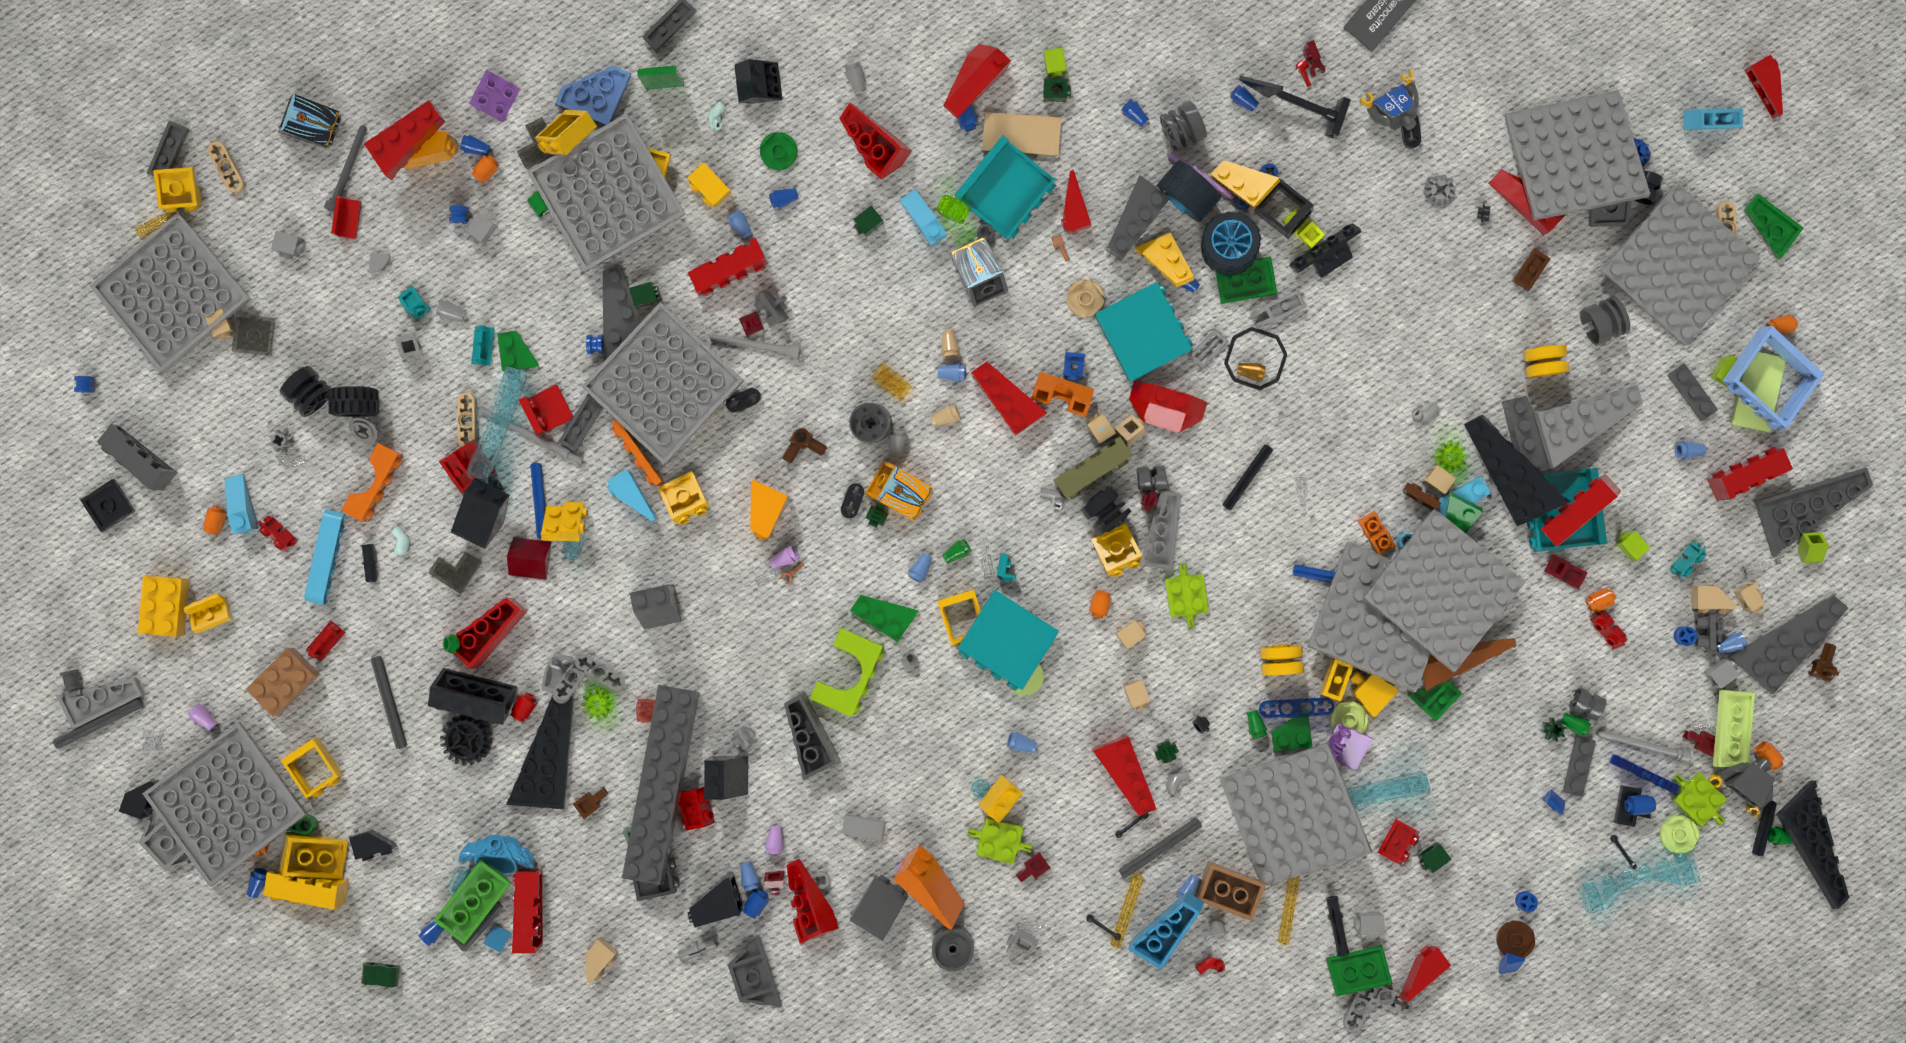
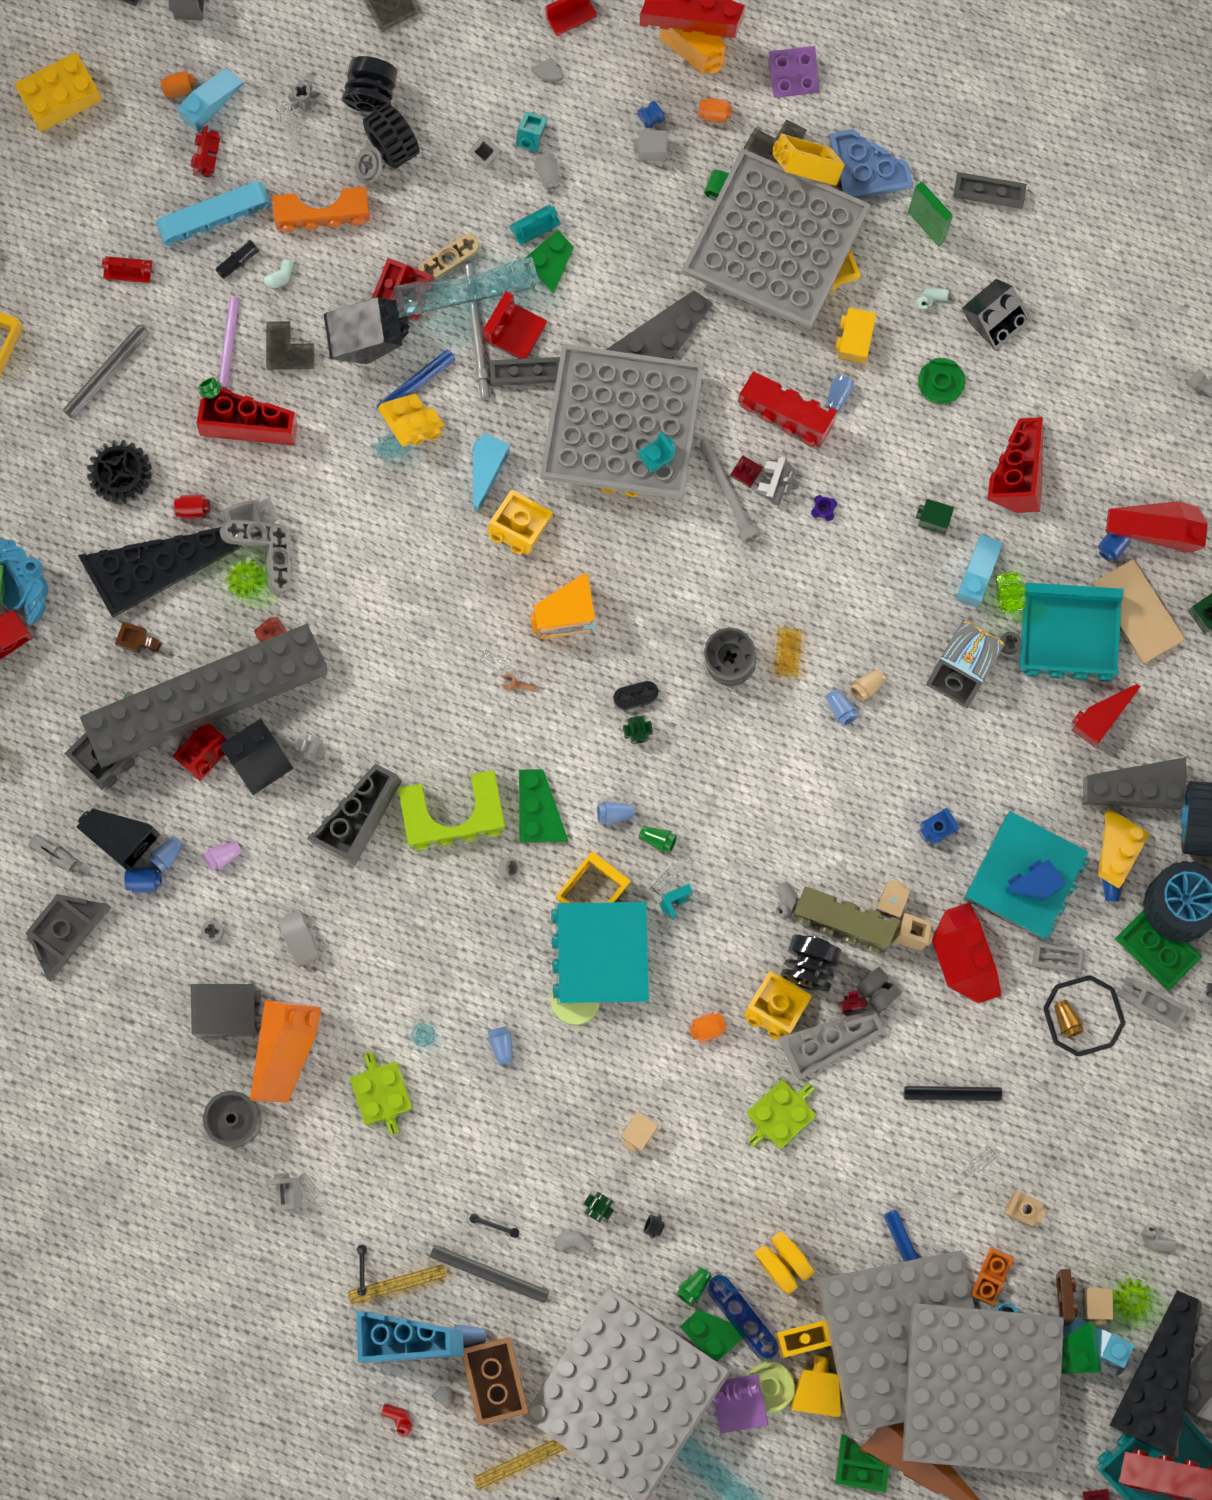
camera: 60 degrees right, 10 degrees down
(208, 613) = (79, 138): yellow bracket -> none
(283, 682) = (58, 254): medium nougat brick -> none
(424, 606) = (228, 341): none -> lavender bar
(472, 696) = (168, 447): black slope -> none
(474, 146) = (730, 85): blue cone -> none
(529, 558) = (349, 411): dark red slope -> none
(594, 344) = (614, 330): blue wheel -> none
(641, 460) = (528, 454): orange plate -> none
(644, 294) = (700, 346): dark green brick -> none
(656, 606) = (388, 566): dark grey slope -> none
(702, 376) = (657, 453): none -> teal bracket
(745, 404) = (665, 511): black beam -> none
(775, 881) = (179, 883): dark red tile -> none
(783, 197) = (897, 416): blue cone -> none
(785, 557) = (530, 666): lavender cone -> none
(806, 290) = (821, 501): none -> dark purple plate
(809, 442) = (651, 598): reddish brown axle -> none
(814, 913) = (173, 947): red wedge -> none
(855, 76) = (1073, 404): light grey cone -> none
(897, 442) = (729, 699): light grey cone -> none
(899, 490) = (680, 736): light orange slope -> none
(946, 416) = (792, 731): tan cone -> none
(1000, 798) = (427, 1061): yellow brick -> none
(1009, 401) = (854, 785): red wedge -> none
(1034, 866) = (378, 1151): dark red plate -> none
(1058, 242) = (1054, 723): nougat hand -> none
(1076, 395) = (898, 817): orange arch -> none
(1085, 304) = (1023, 796): tan tile -> none
(1123, 767) = (548, 1175): red wedge -> none
(1131, 633) = (699, 1082): tan brick -> none
(1155, 328) = (1038, 883): none -> blue slope
(1344, 487) = (1015, 1209): none -> tan brick

